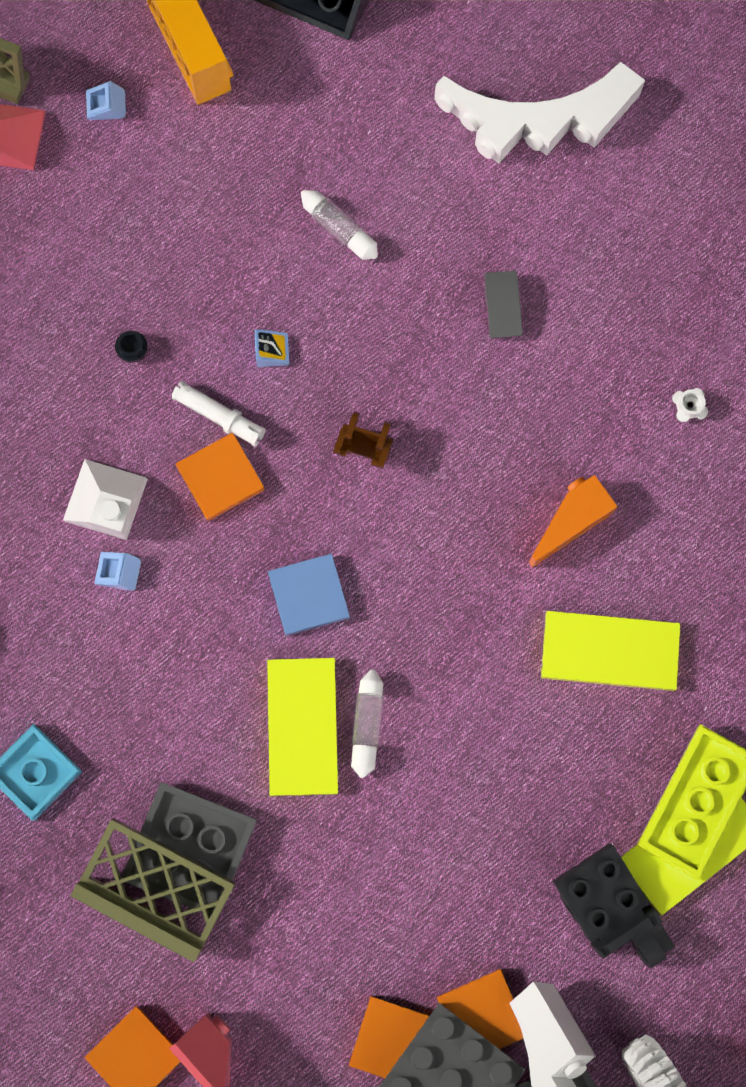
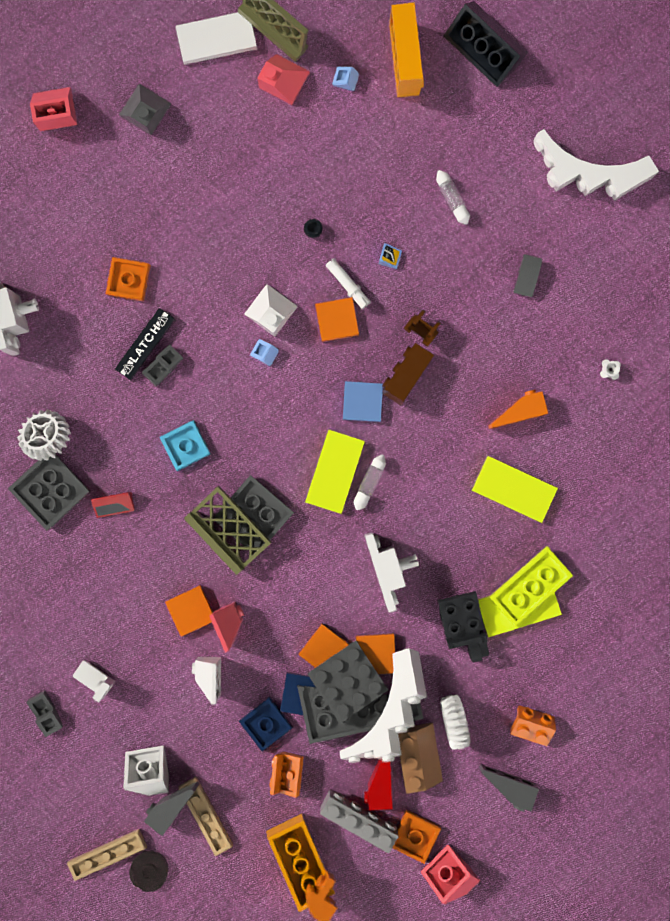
camera: 25 degrees right, 10 degrees up
(365, 523) = (407, 373): none -> reddish brown brick
(450, 858) = (388, 569): none -> white brick

